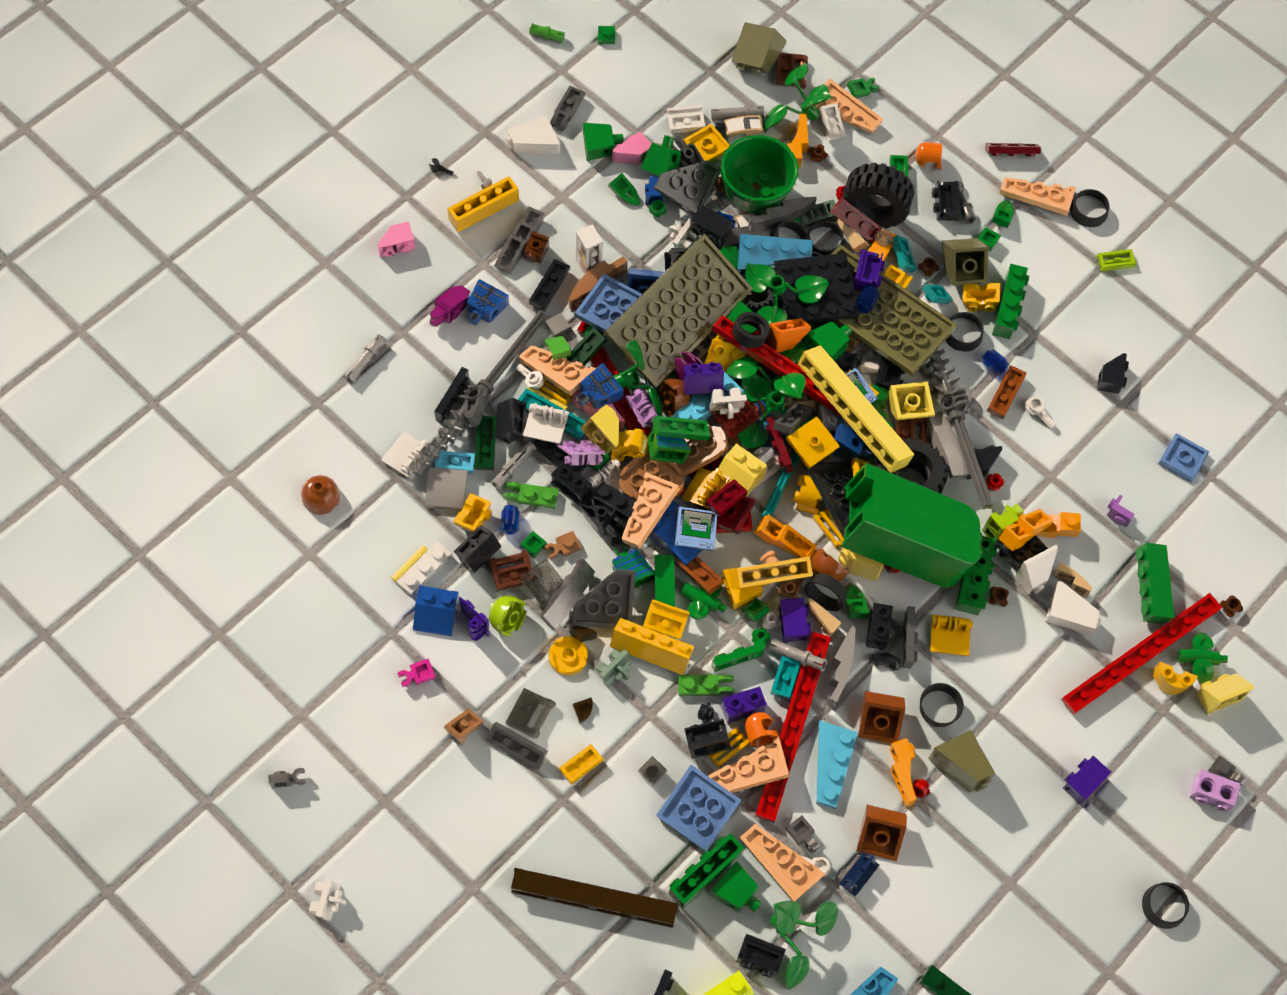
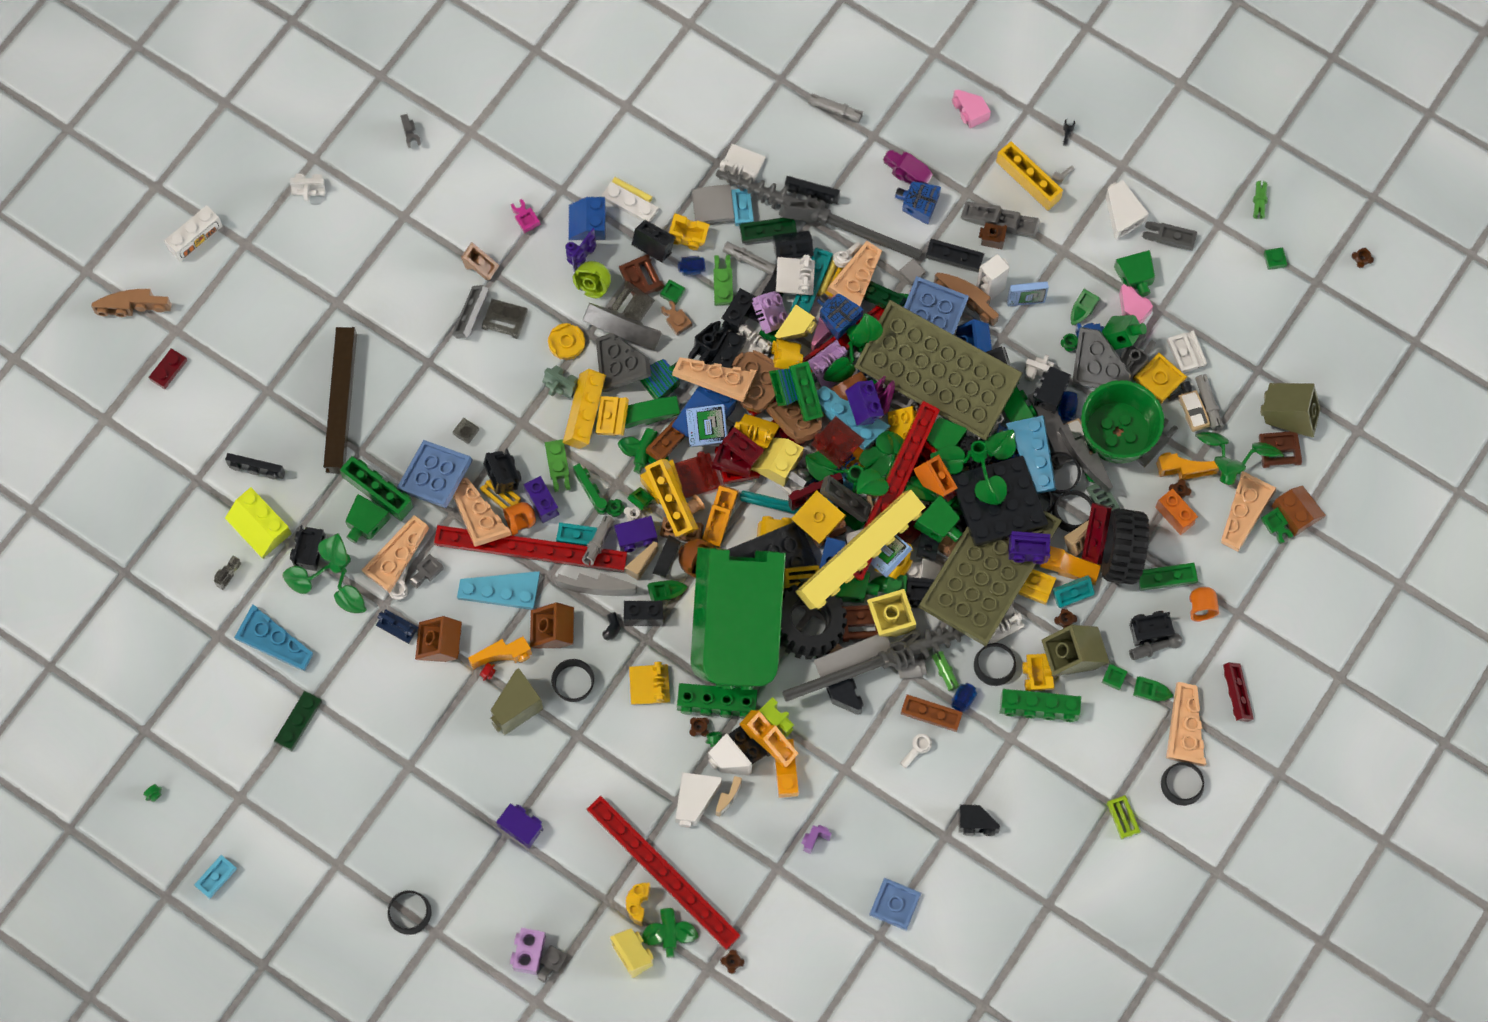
camera: 85 degrees right, 5 degrees up
(320, 494) = (685, 100): dark orange cylinder -> none
(558, 347) = (883, 272): bright green slope -> none
(581, 764) = (462, 369): yellow plate -> none
(582, 633) = (589, 349): dark brown tile -> none
(583, 709) = (516, 363): dark brown tile -> none
(607, 228) = (1027, 293): none -> light blue tile
(706, 712) = (528, 468): black plate -> none
(727, 404) = (846, 436): white hips -> none
(737, 551) = (697, 475): none -> clear red hinge
(745, 338) = (939, 431): black tyre -> none
(832, 122) = (1221, 498): white plate -> none
(840, 158) = (1176, 511): none -> orange hinge
(851, 67) = (1298, 509): none -> dark orange slope
(867, 299) = (994, 549): clear blue brick -> none
(883, 237) = (1084, 570): clear plate -> none
(910, 637) = (638, 644): dark grey plate -> none
(937, 294) = (1028, 627): teal plate -> none
(969, 372) = (945, 671): none -> bright green pin
(994, 486) = (825, 715): red plate -> none
(1013, 583) = (713, 738): none -> green plate
(1154, 583) = (739, 877): green brick -> none

